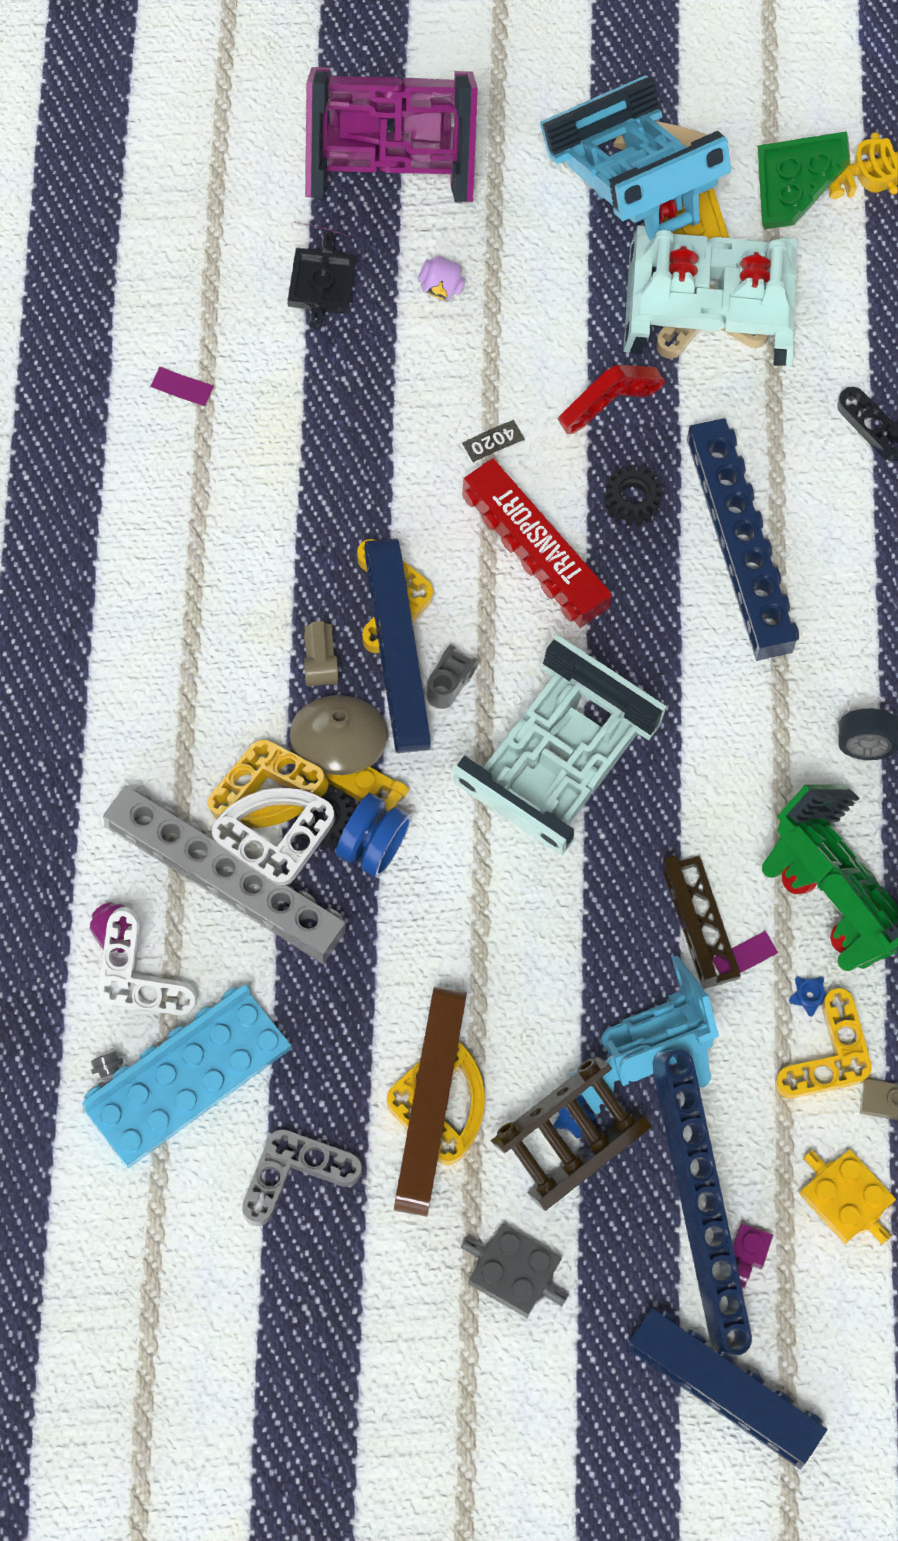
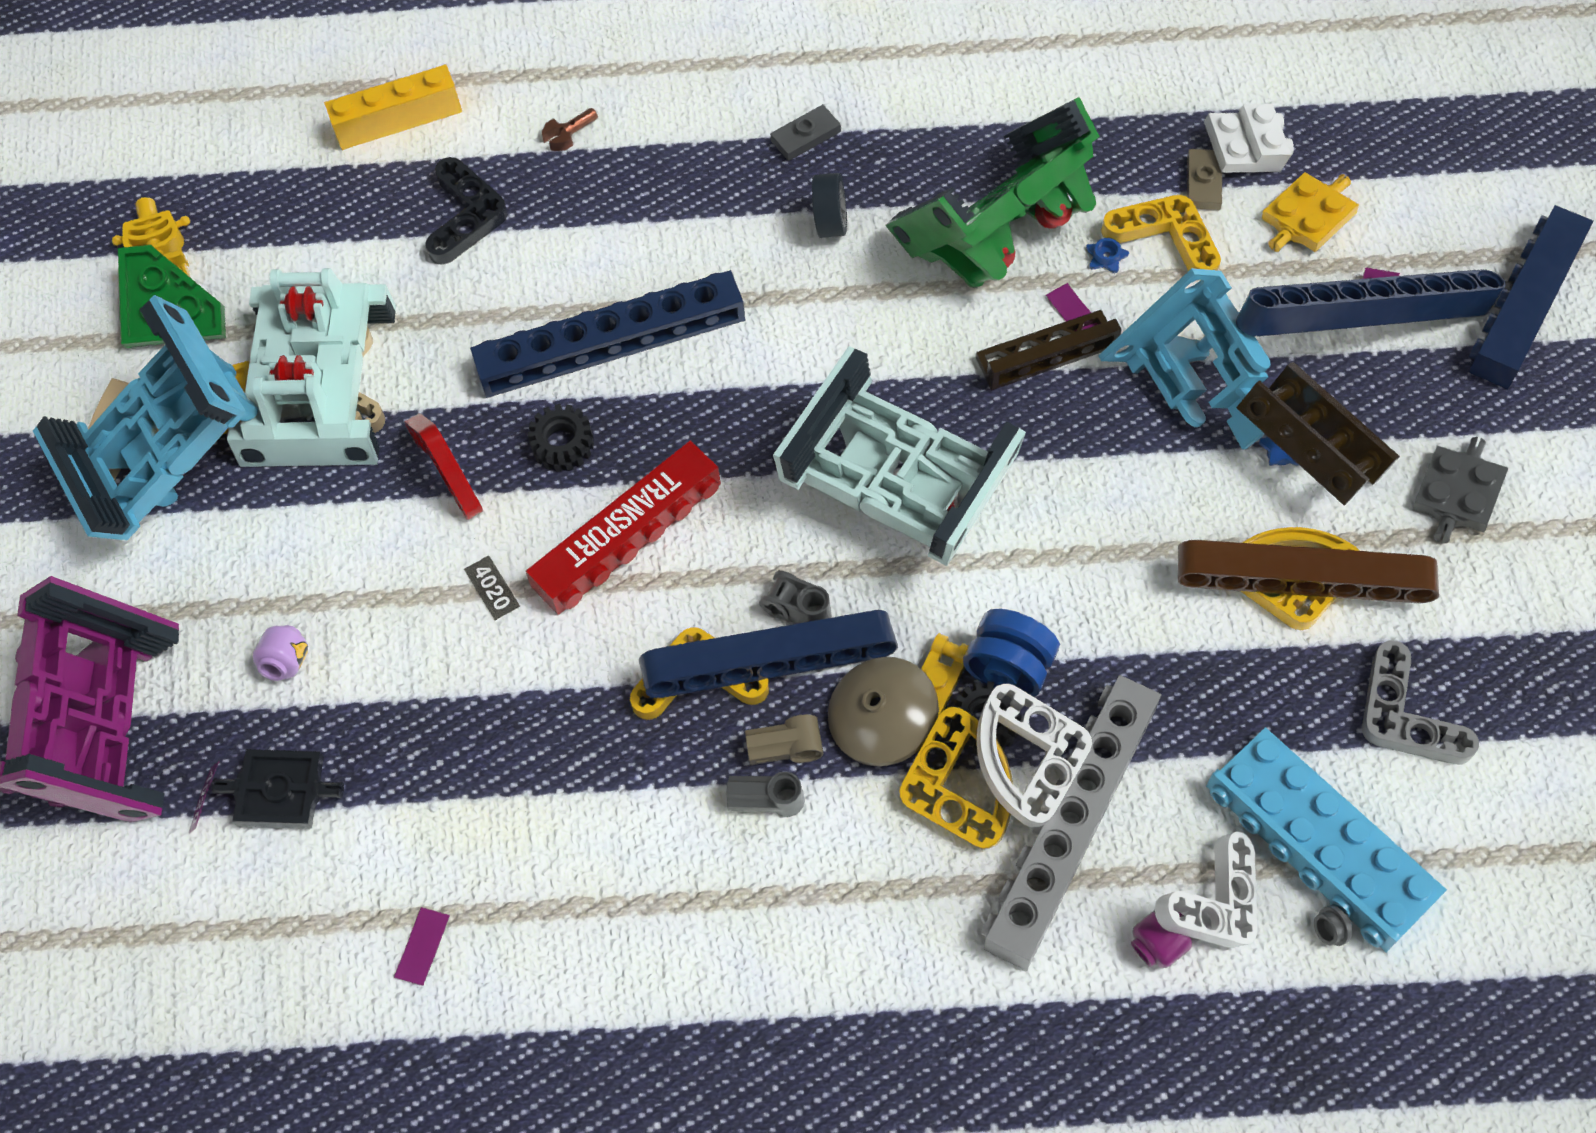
camera: 85 degrees left, 5 degrees down
(274, 637) = (761, 793): none -> dark grey piece

